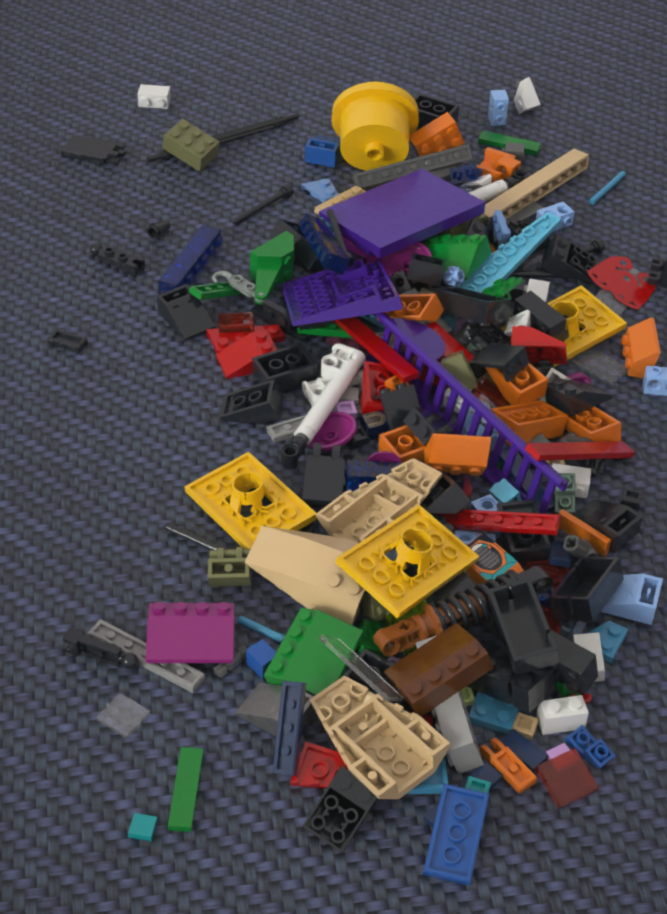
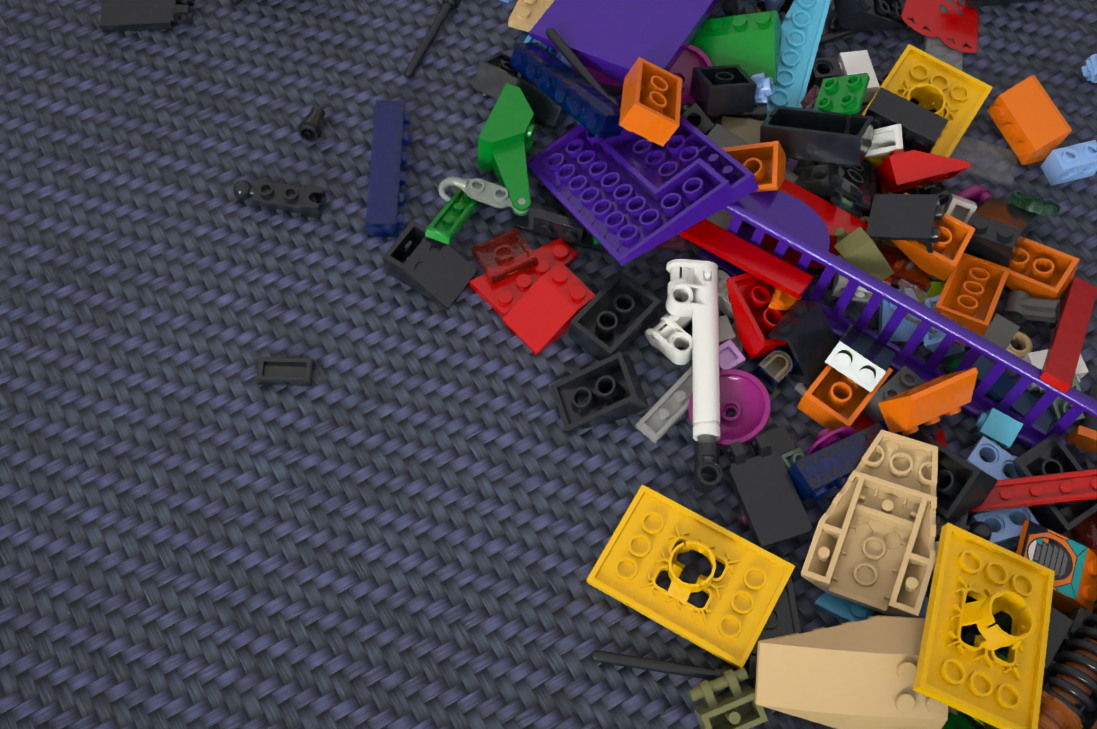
camera: 25 degrees left, 20 degrees up
(366, 255) = (651, 102): none -> orange brick
(615, 392) = (1034, 204): none -> clear green tile

